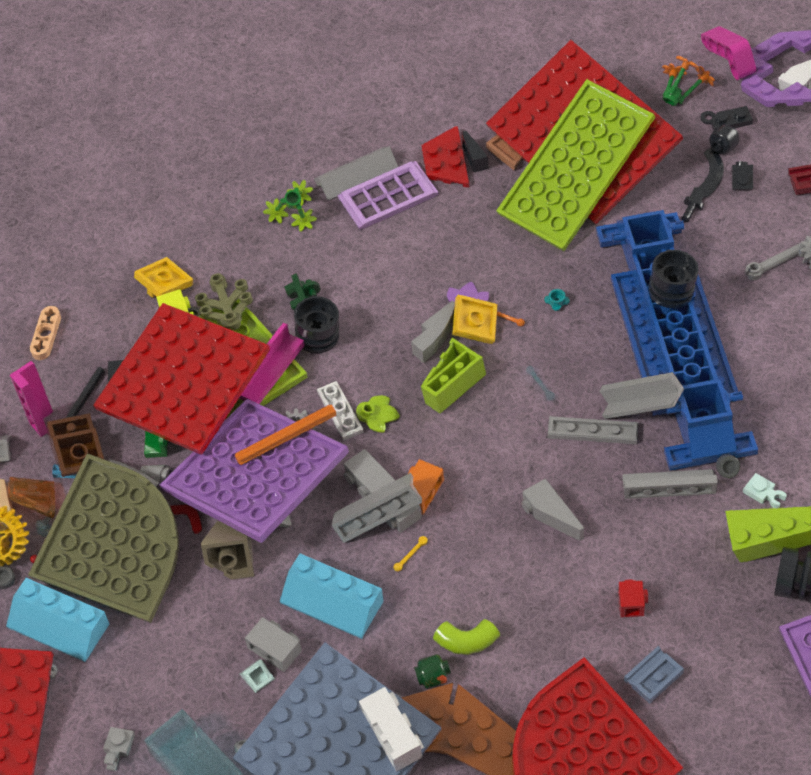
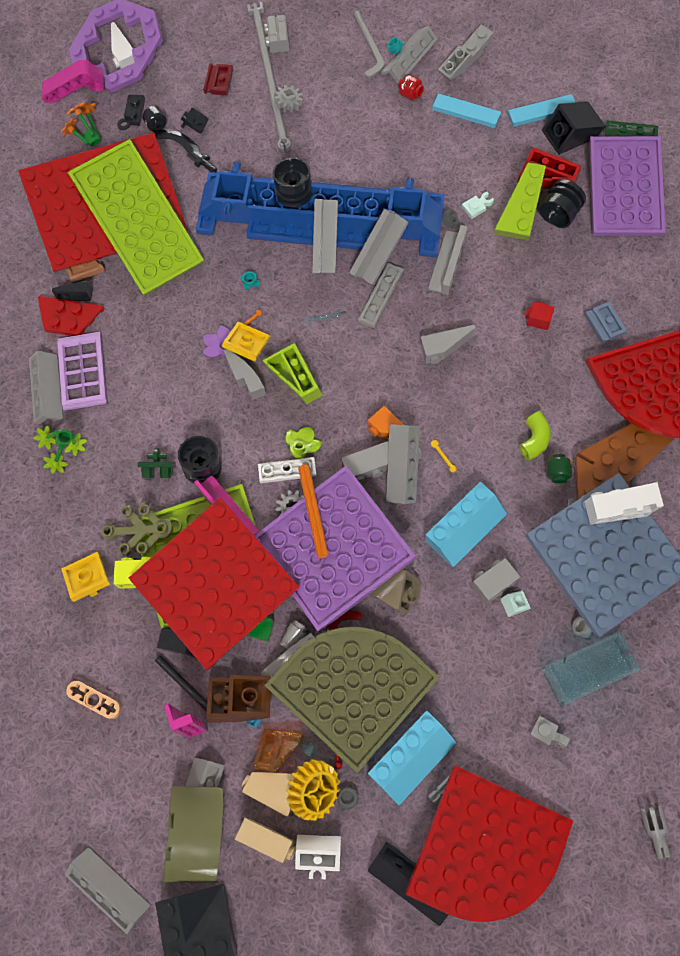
camera: 70 degrees left, 15 degrees up
(632, 340) = (325, 236): none -> light grey panel

